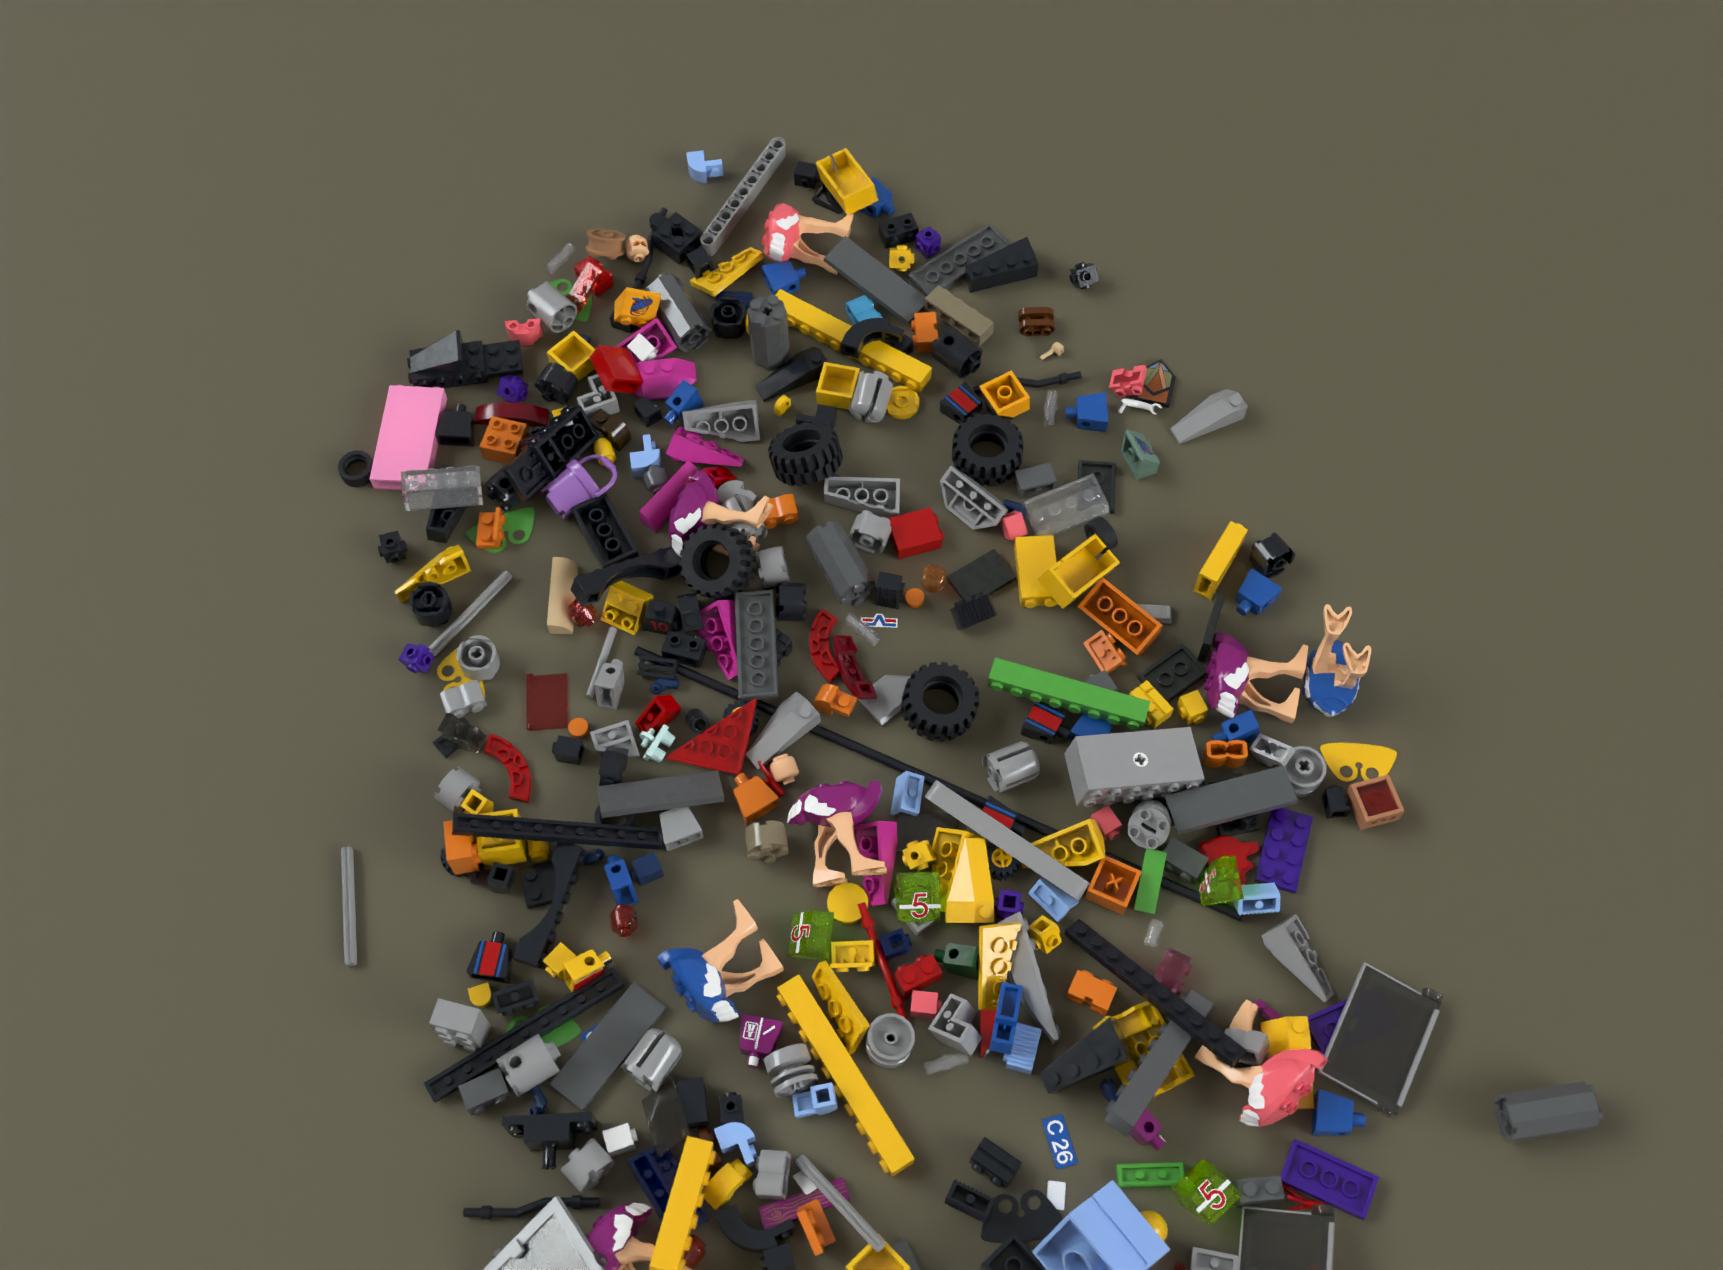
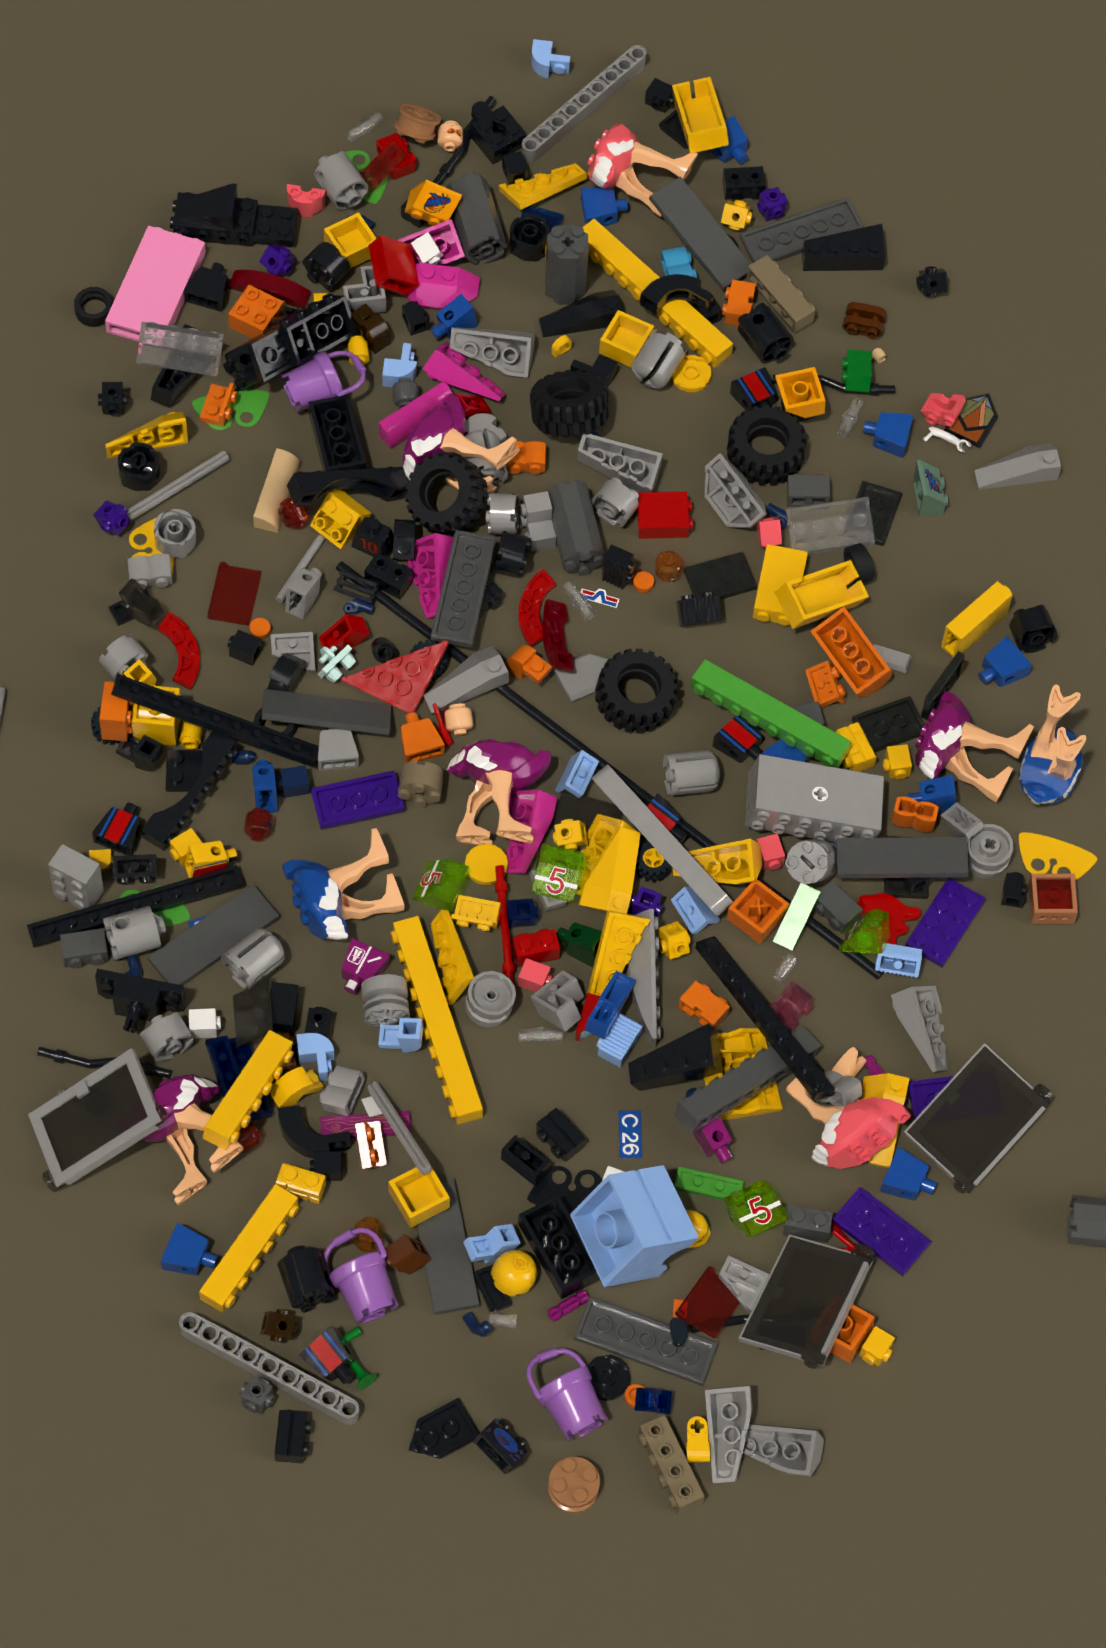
camera: 10 degrees right, 0 degrees up
(710, 871) = (357, 800): none -> dark purple plate
(805, 565) = (537, 520): none -> light grey brick
(1045, 365) = (857, 370): none -> green brick

